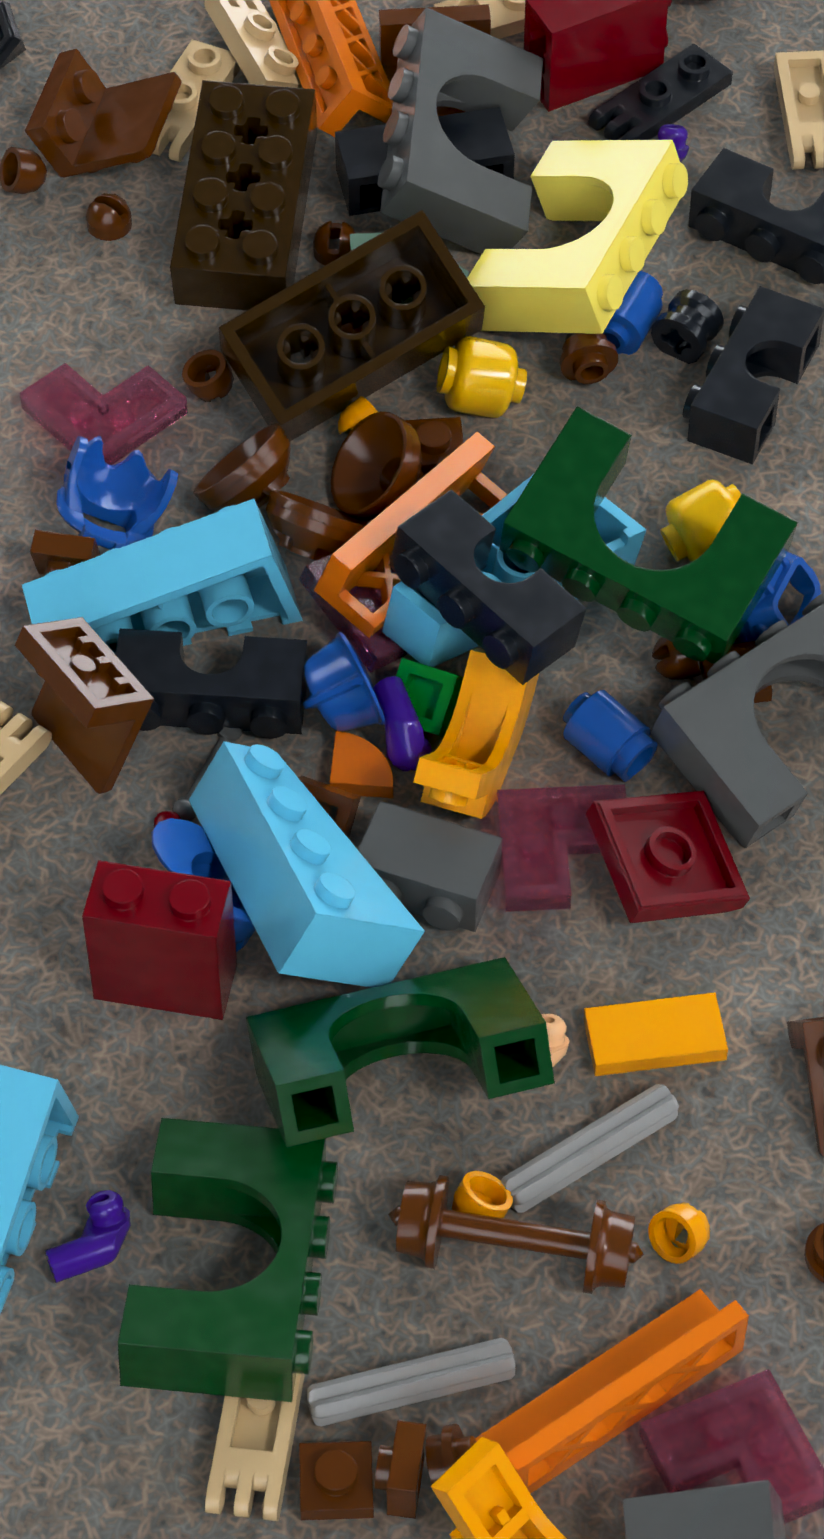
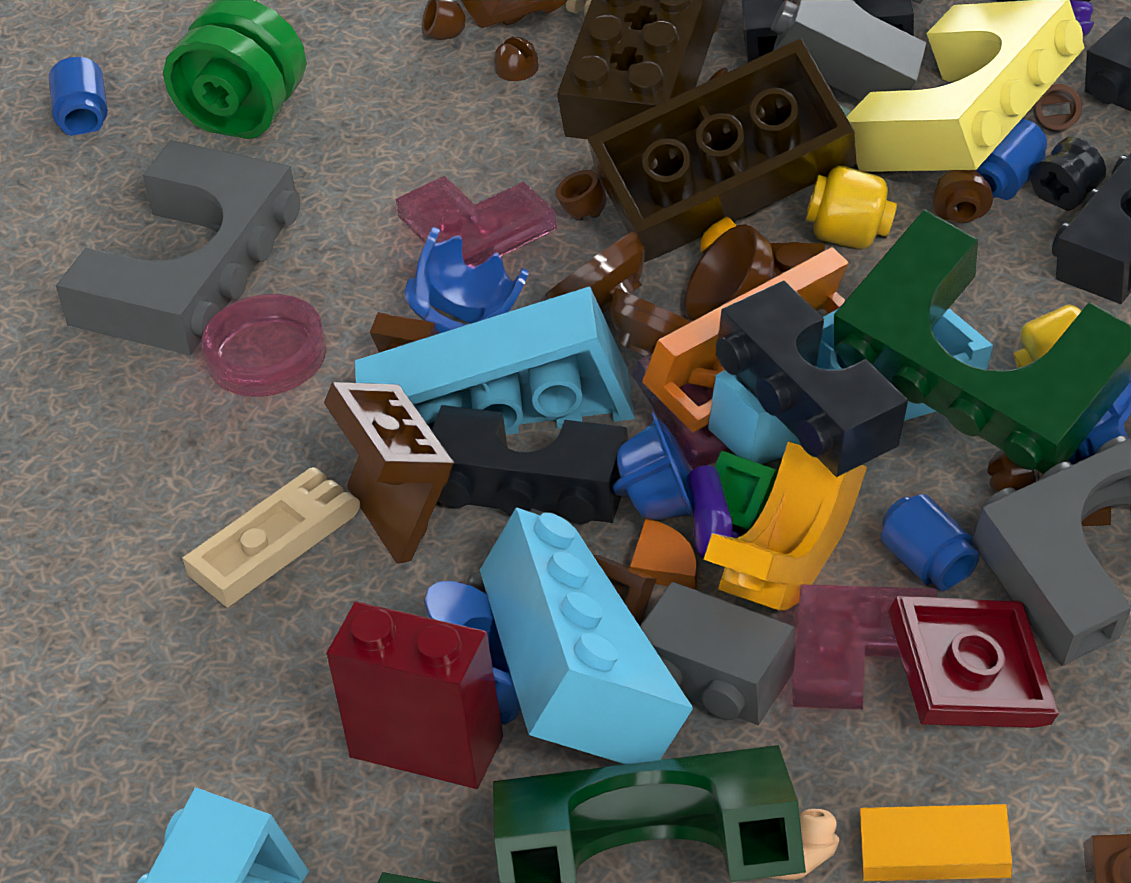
camera: 15 degrees right, 10 degrees down
(670, 263) = (1058, 95): none -> reddish brown hinge

